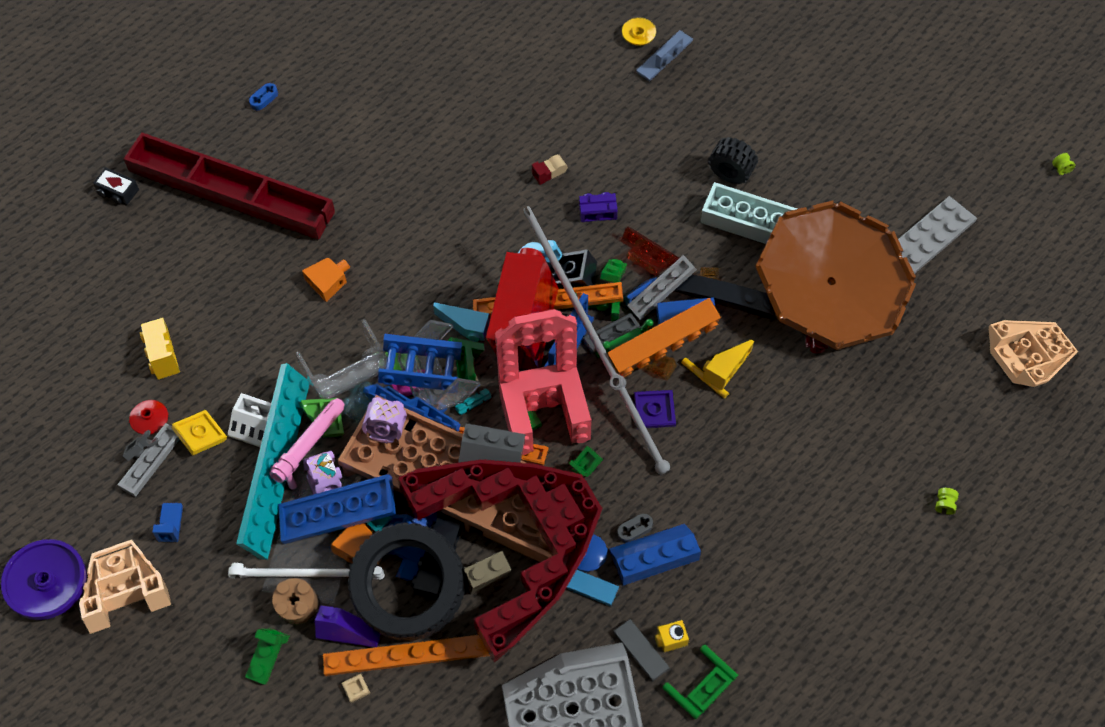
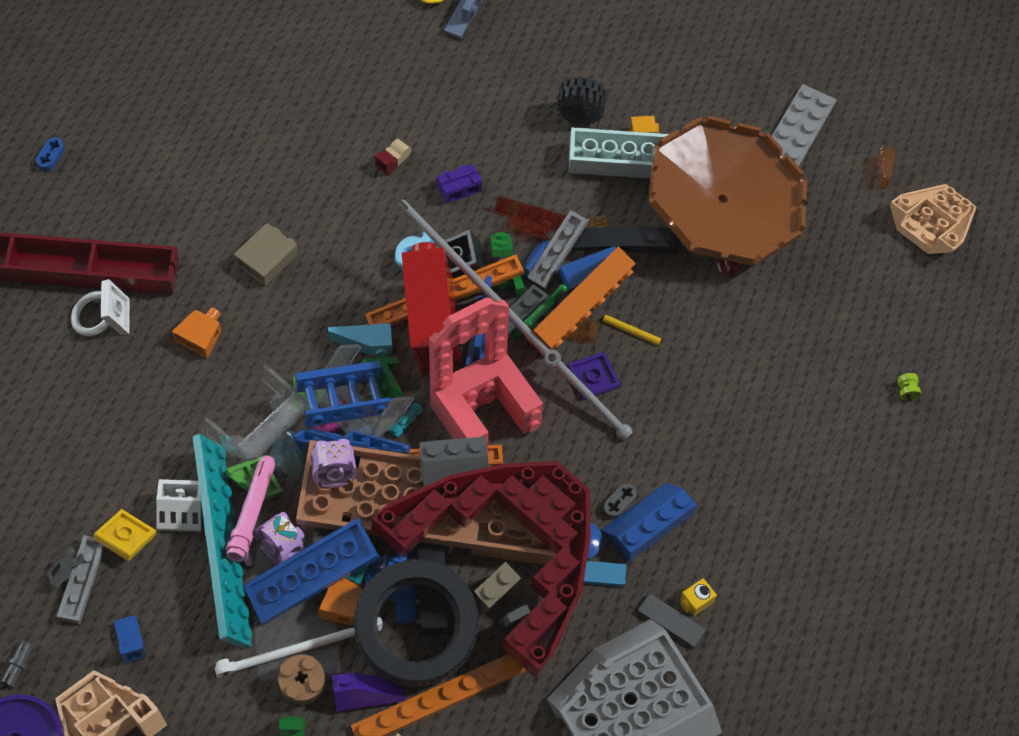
camera: 25 degrees left, 0 degrees up
(72, 515) = (17, 664): none -> dark grey pin
(153, 422) = (59, 544): red dish -> none
(159, 349) = (44, 457): yellow wedge -> none
(261, 239) = (114, 310): none -> white tile
(408, 225) = (266, 254): none -> dark tan brick
(493, 602) = (512, 617): none -> dark grey tile
(586, 462) = (546, 448): green bracket -> none
(708, 689) = (751, 639): green plate -> none
(726, 364) = (648, 311): yellow slope -> none
(784, 196) = (644, 124): none -> light orange brick
(1003, 287) = (886, 160): none -> clear orange slope
(1063, 164) = (899, 25): lime wheel -> none

